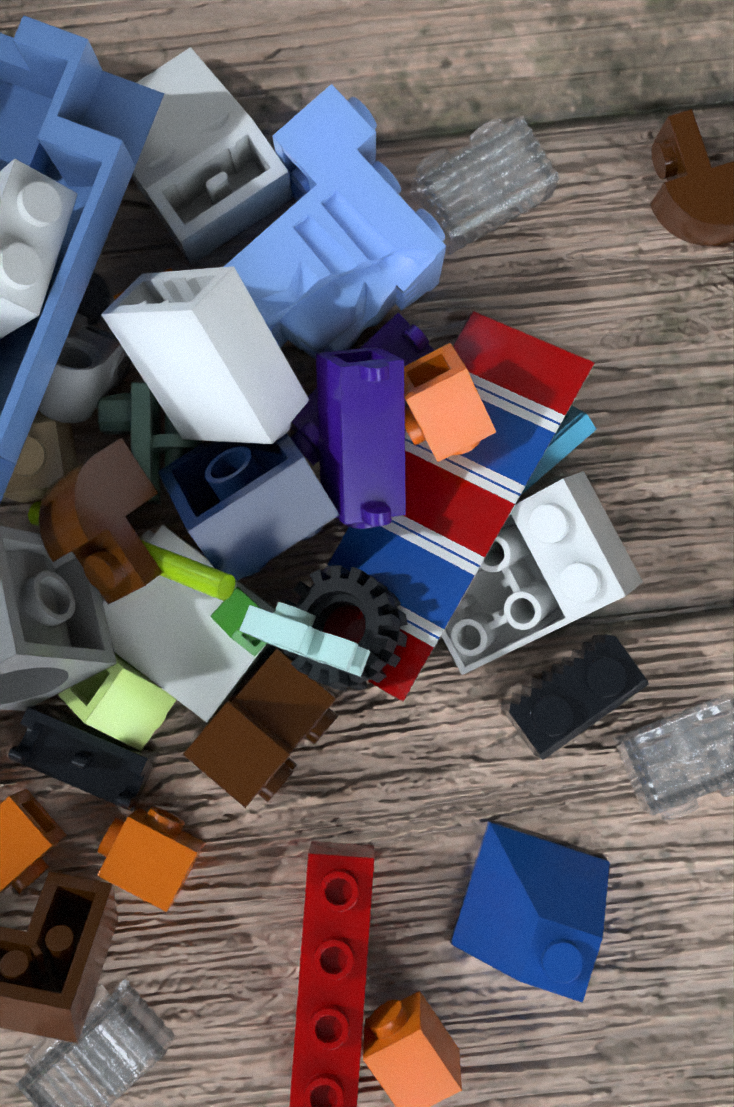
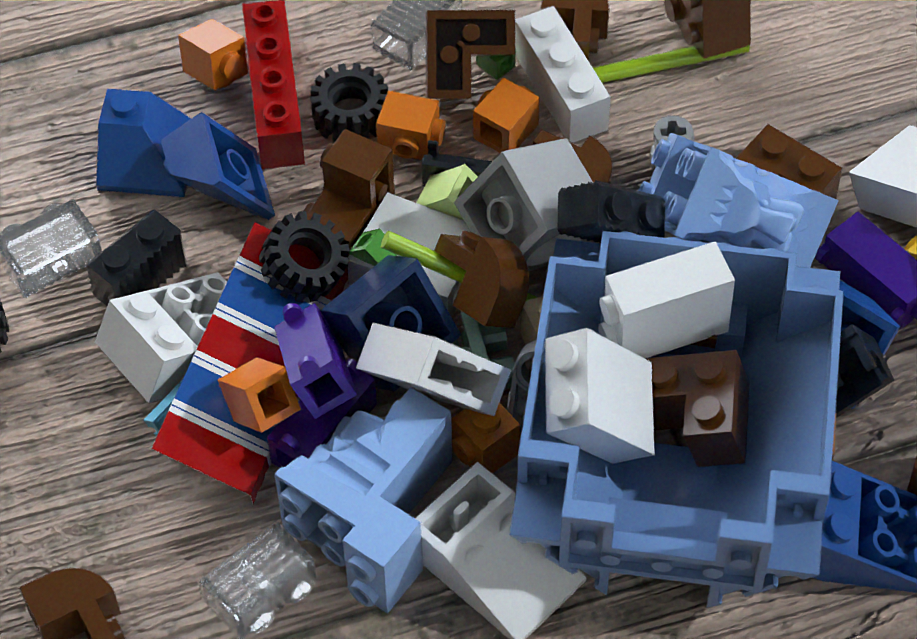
camera: 170 degrees right, 30 degrees down
(218, 961) = (346, 85): none -> black tyre
(293, 631) = (331, 224): light aqua plate -> none
(437, 829) = (217, 165): none -> blue slope

